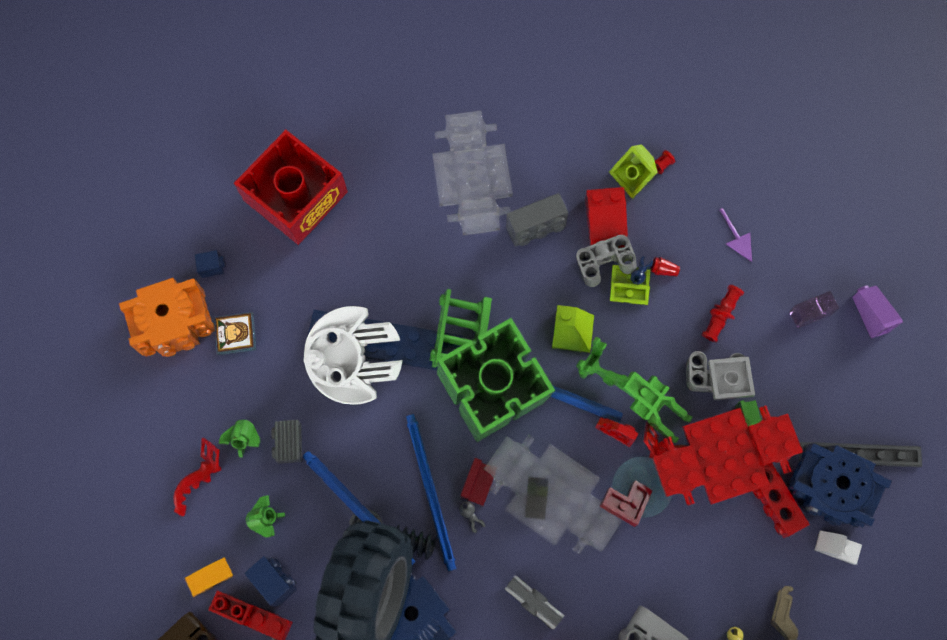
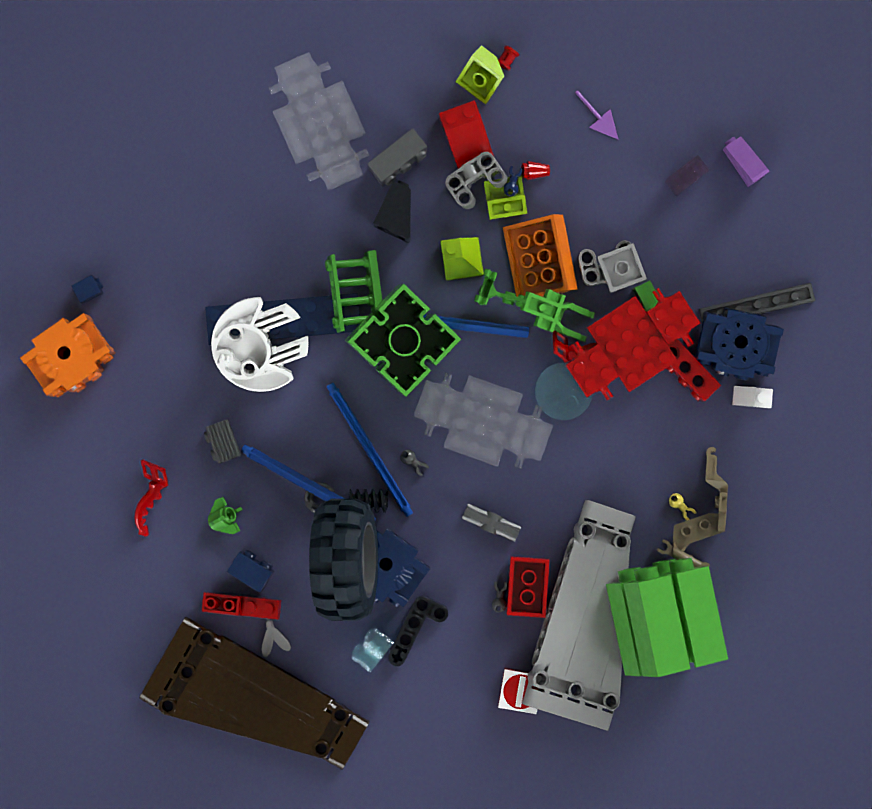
camera: 20 degrees left, 15 degrees up
(208, 577) = (191, 582): light orange slope -> none
(235, 333) = (136, 351): tile -> none
(241, 435) = (178, 447): bright green brick -> none
(291, 186) = (146, 192): red brick -> none
(477, 483) = (411, 430): dark red panel -> none
(520, 268) = (395, 212): none -> black slope
(536, 498) = (469, 429): clear smoke slope -> none
(622, 433) = (533, 348): red plate -> none
(627, 507) = (555, 415): plate -> none
(652, 345) = (540, 256): none -> orange slope
(722, 313) = (601, 203): red piece -> none

